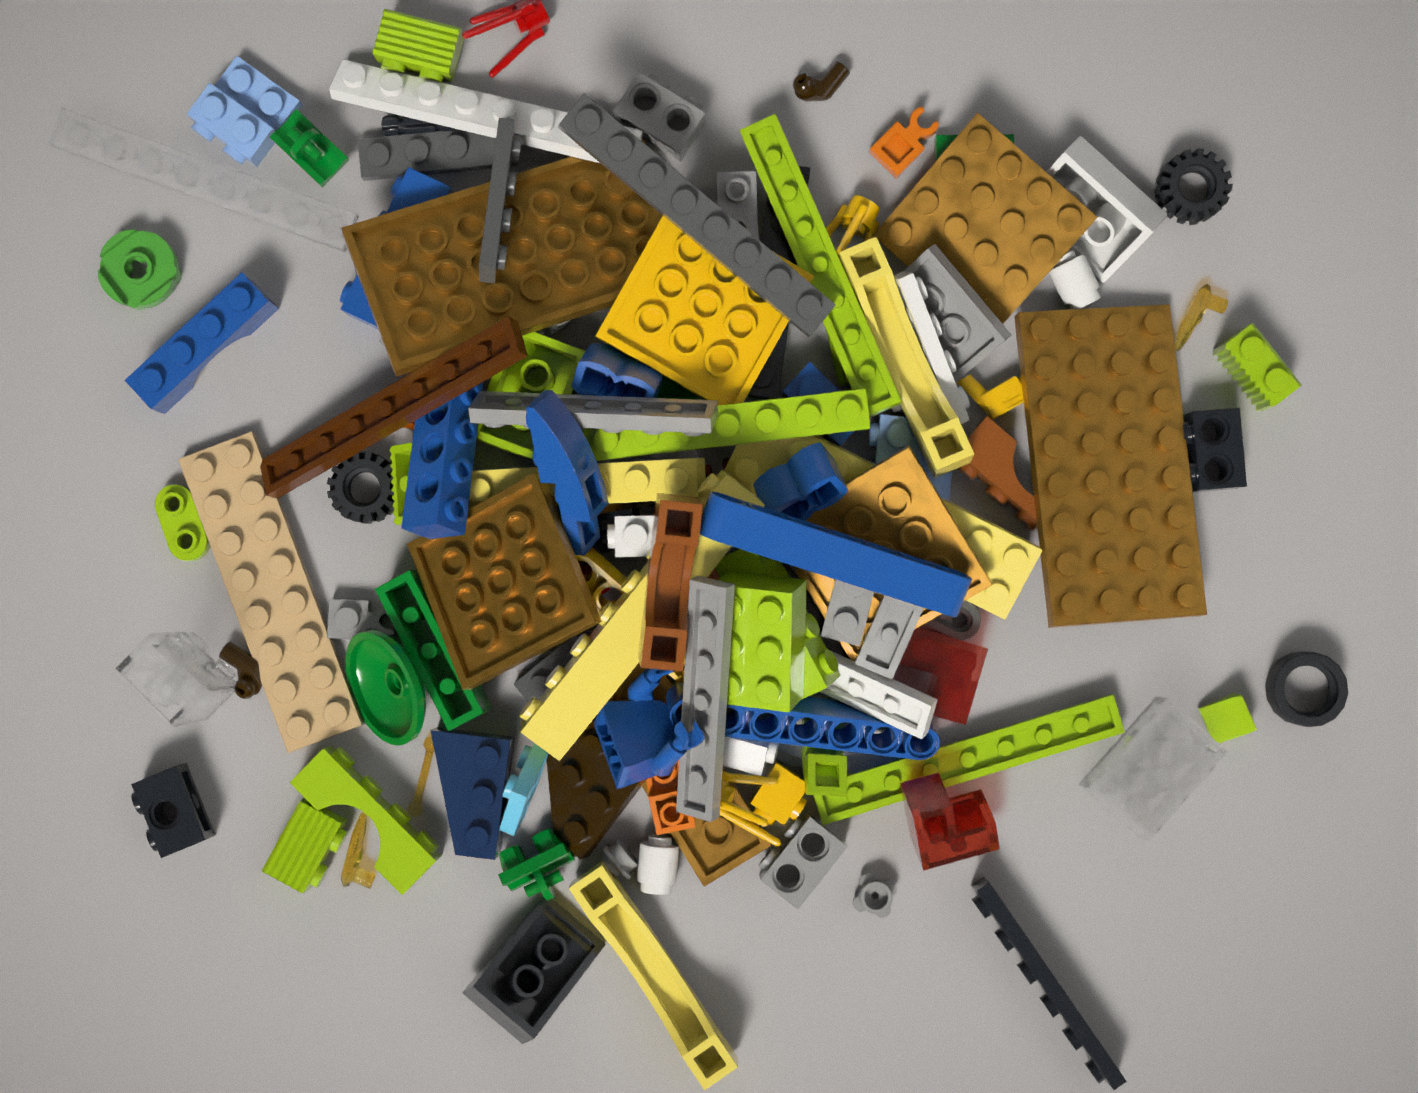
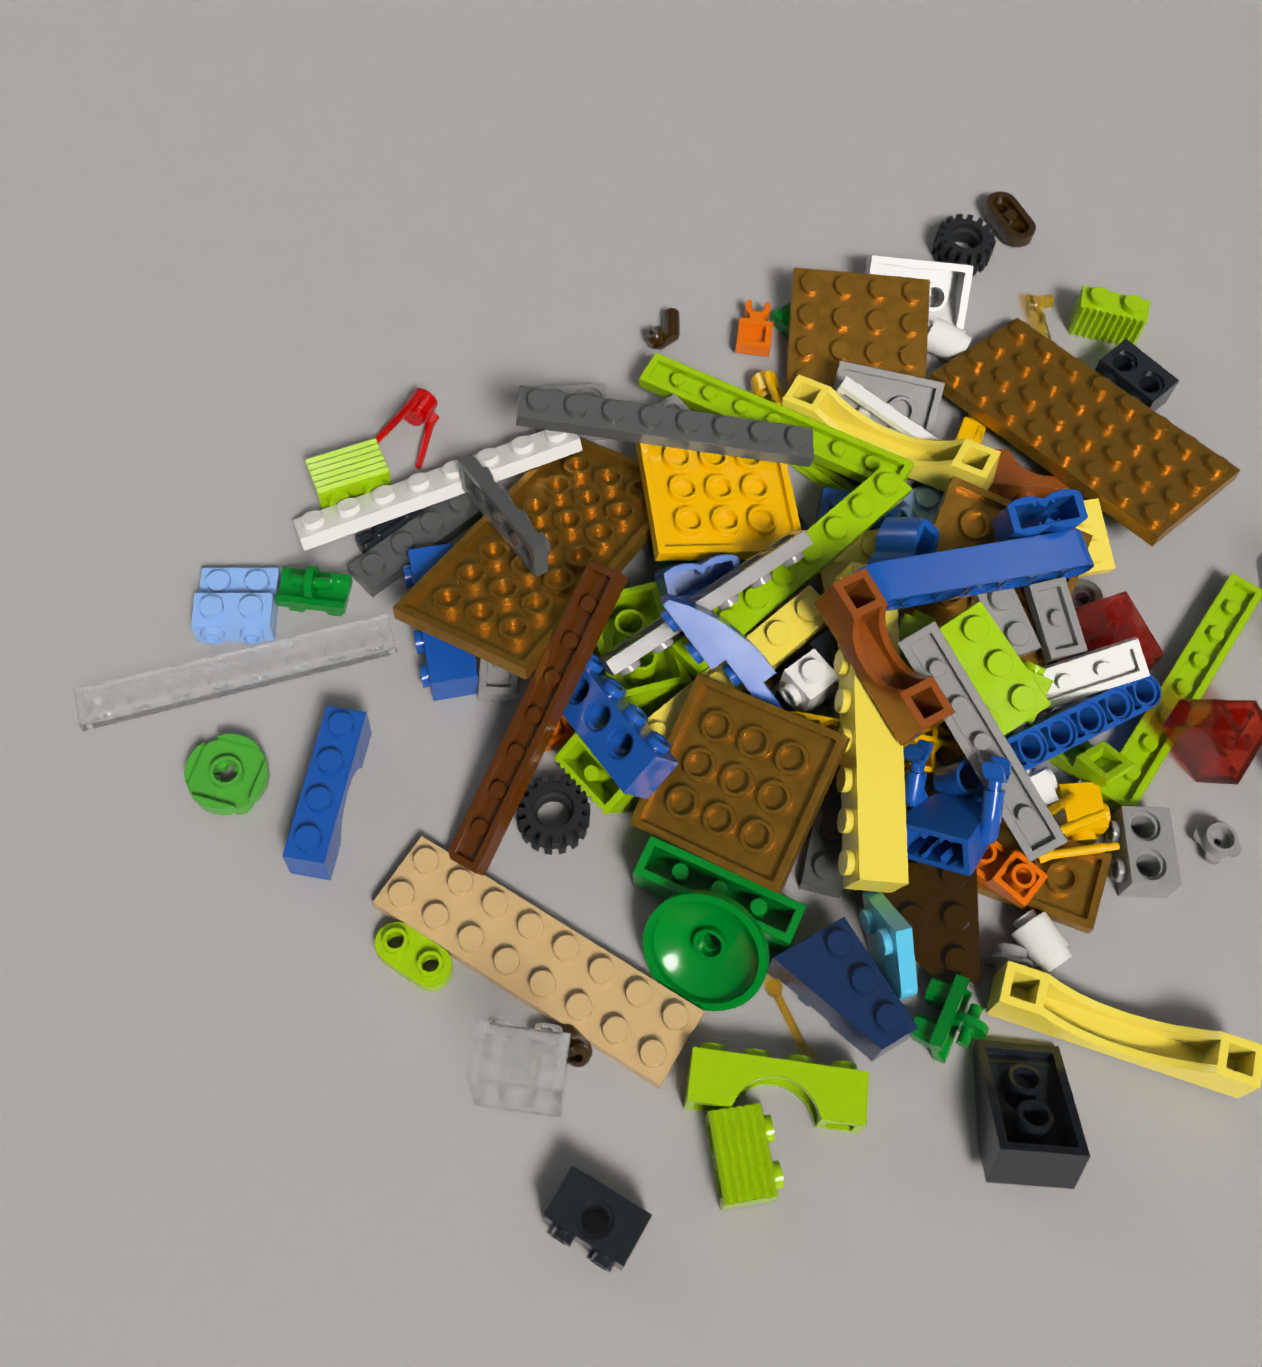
camera: 40 degrees left, 25 degrees down
(352, 617) = (624, 929): light grey plate -> none
(355, 852) = (797, 1150): clear yellow bar -> none
(948, 549) = (1039, 516): none -> blue brick
(1268, 190) = (1009, 219): none -> dark brown plate

